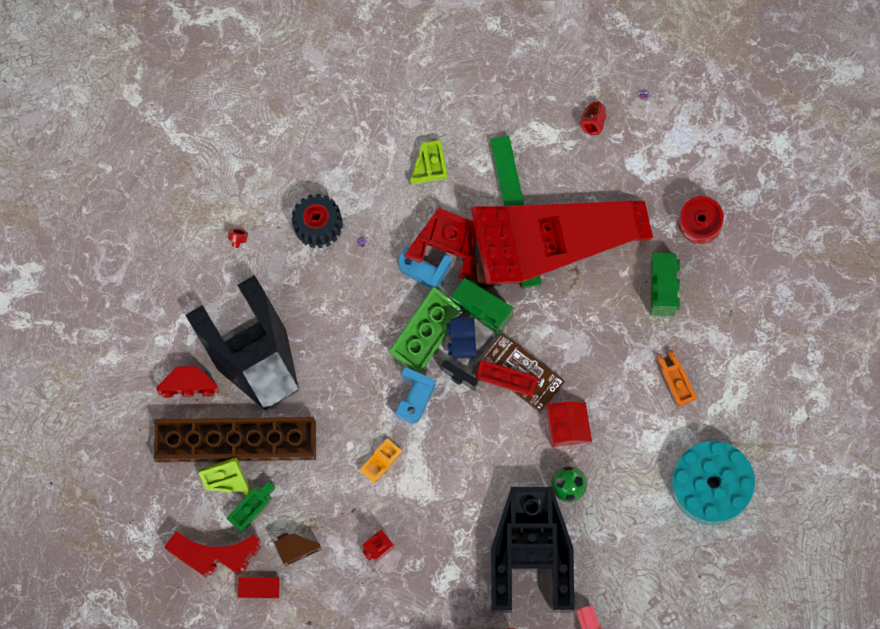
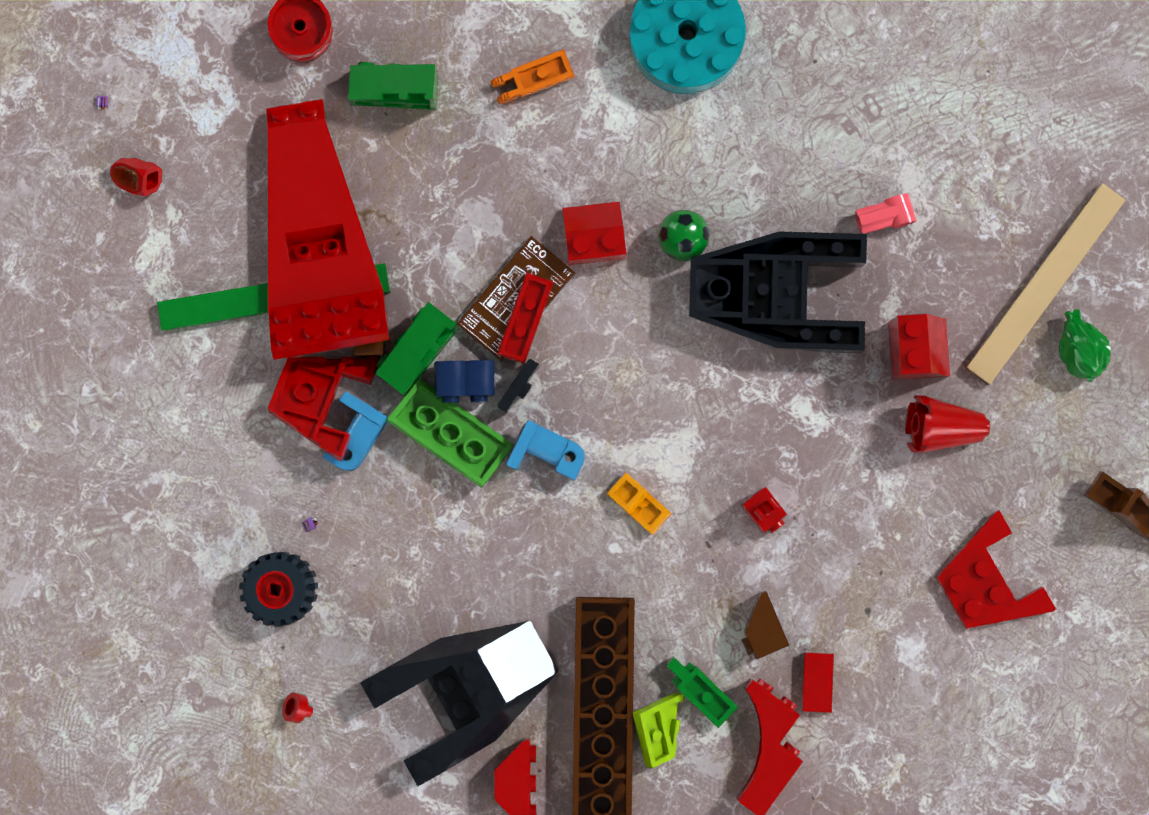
camera: 90 degrees left, 10 degrees up
(430, 164) = (195, 420): lime wing -> none

